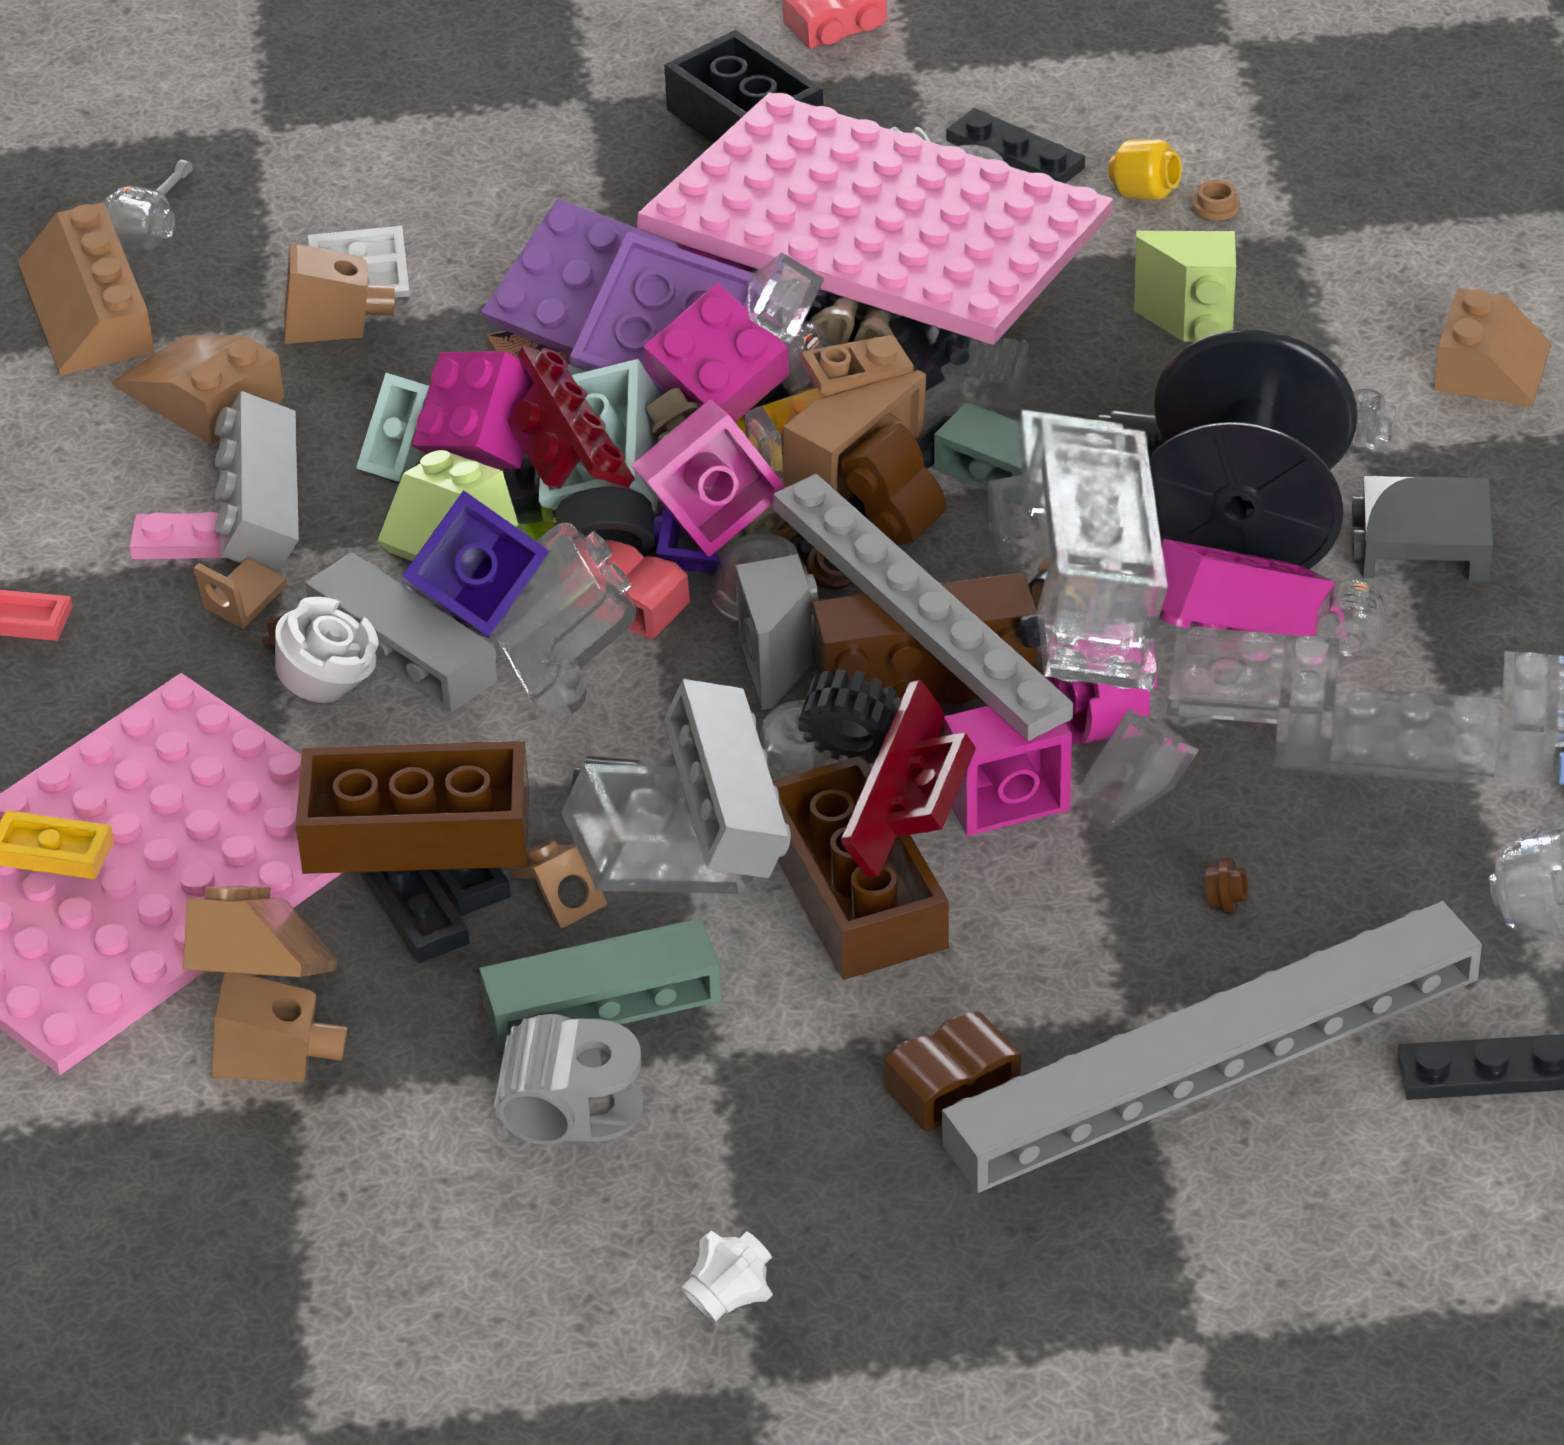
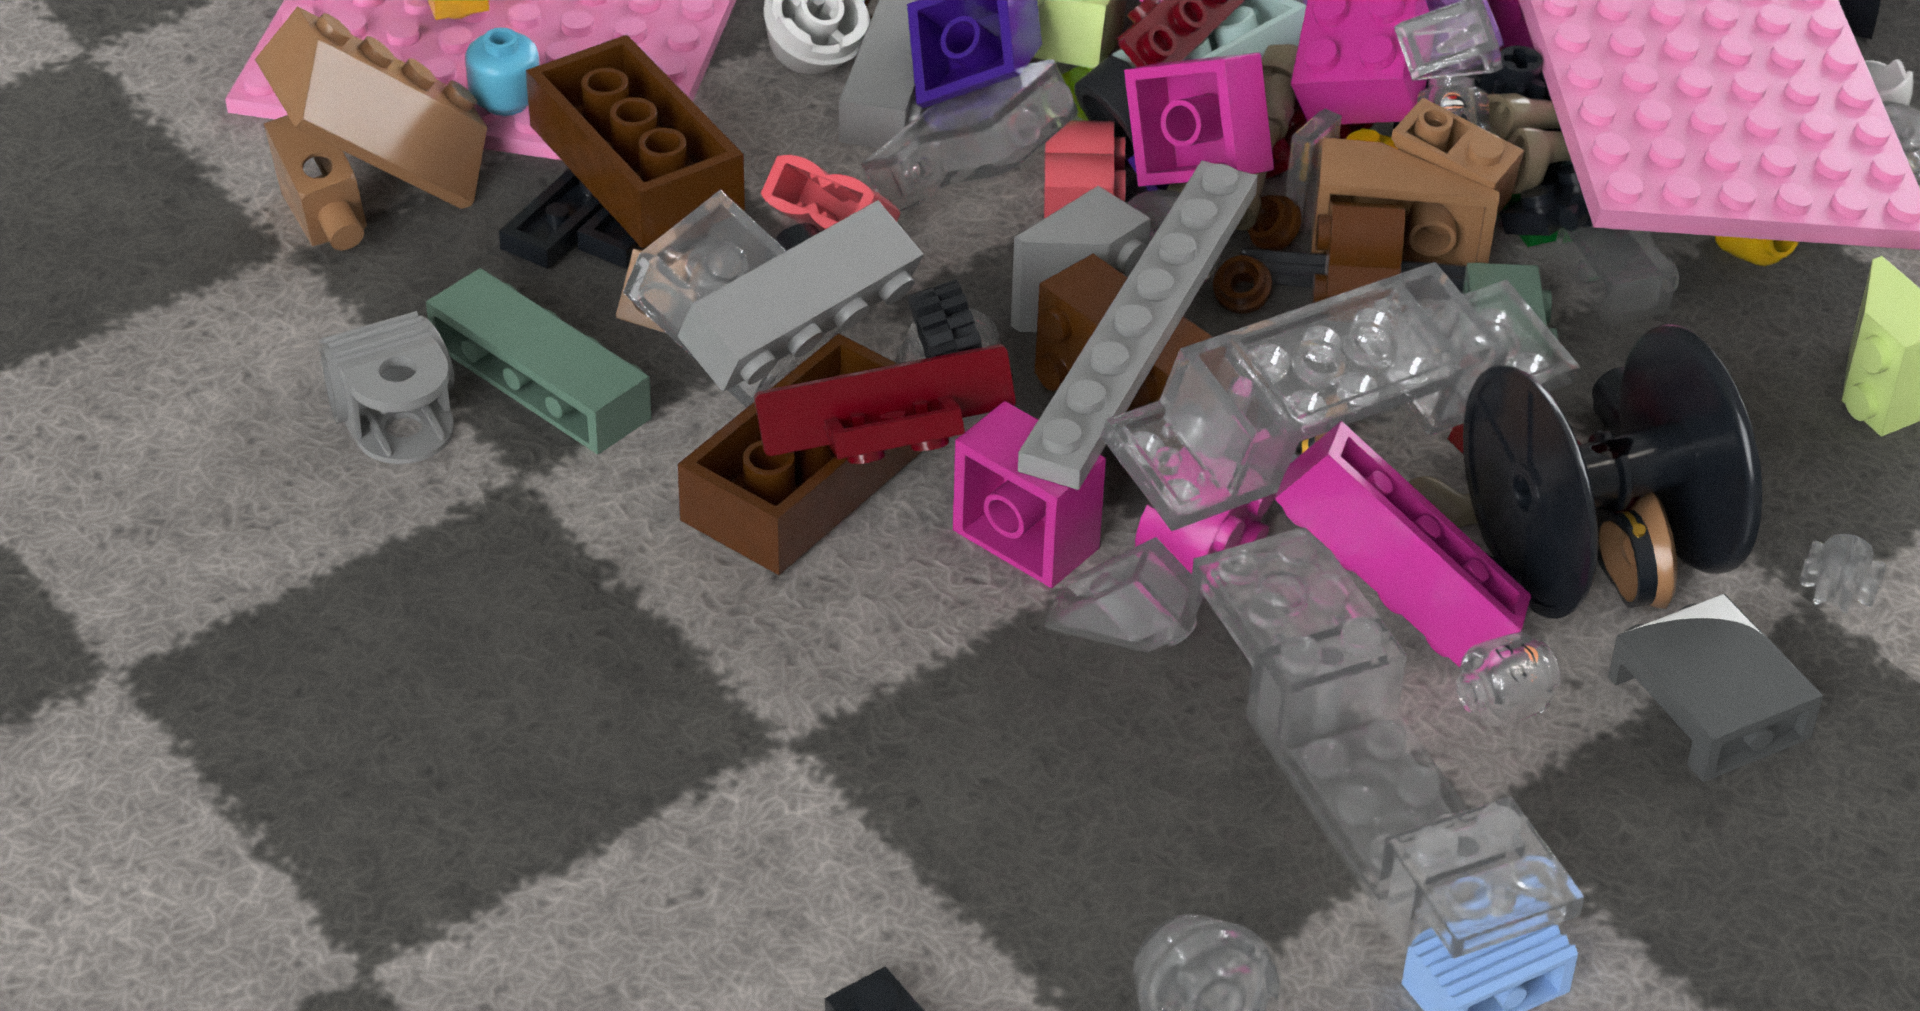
camera: 55 degrees right, 0 degrees up
(239, 851) = (498, 69): none -> medium azure head
(576, 733) = (815, 196): none -> coral brick
(728, 1274) = (215, 585): white rock -> none
(952, 1064) = (595, 634): reddish brown brick -> none
(1209, 1046) = (782, 819): light grey brick -> none
(1226, 885) = (1008, 726): reddish brown plate -> none

